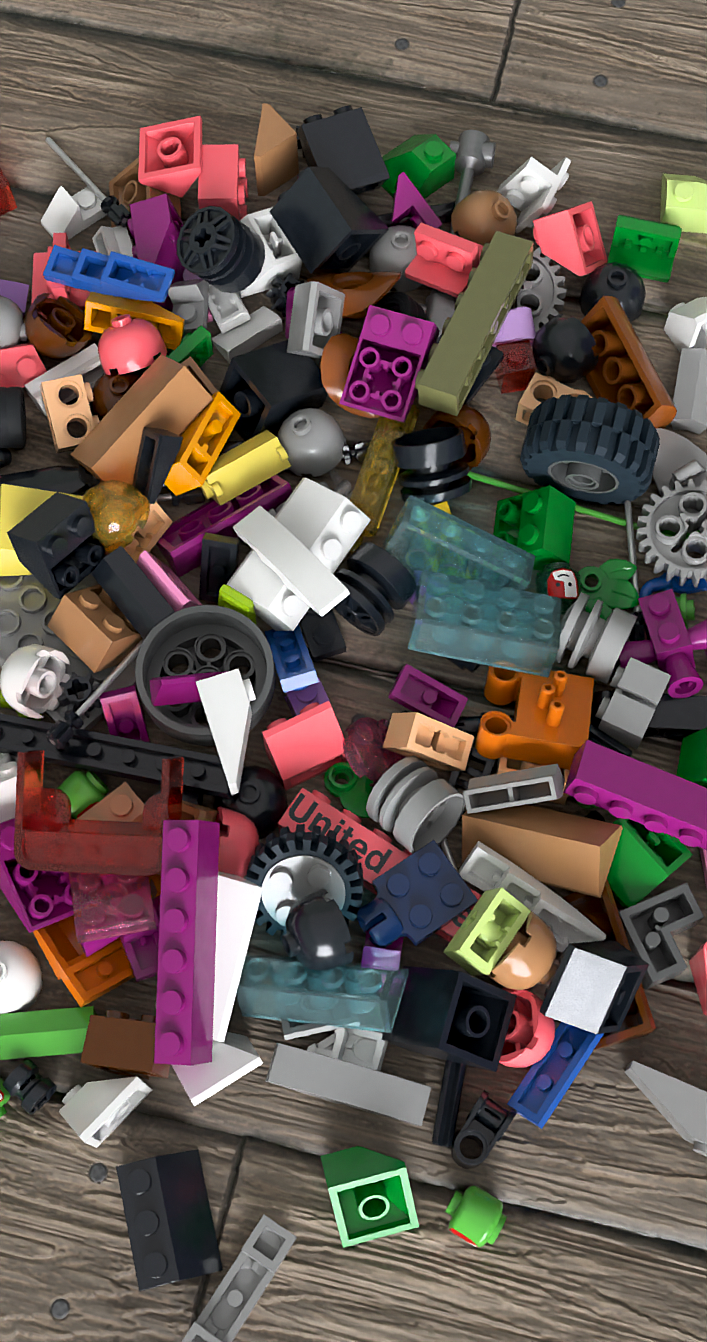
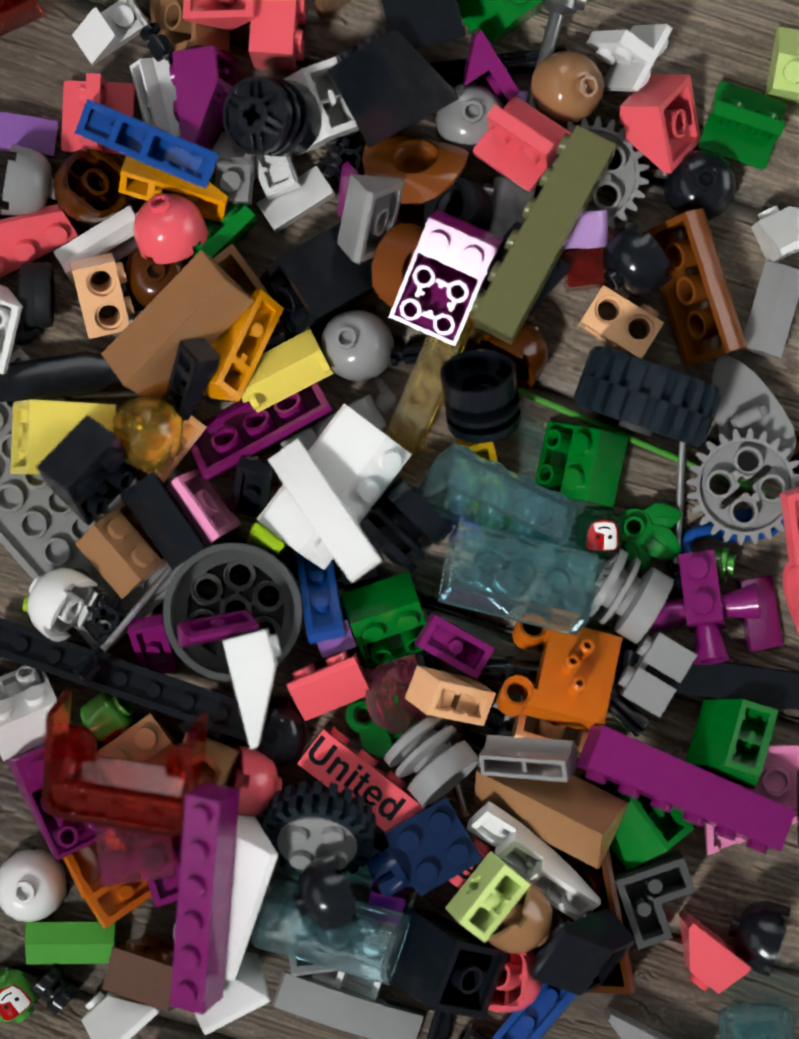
camera: 10 degrees right, 20 degrees up
(359, 682) = (385, 619): none -> green slope

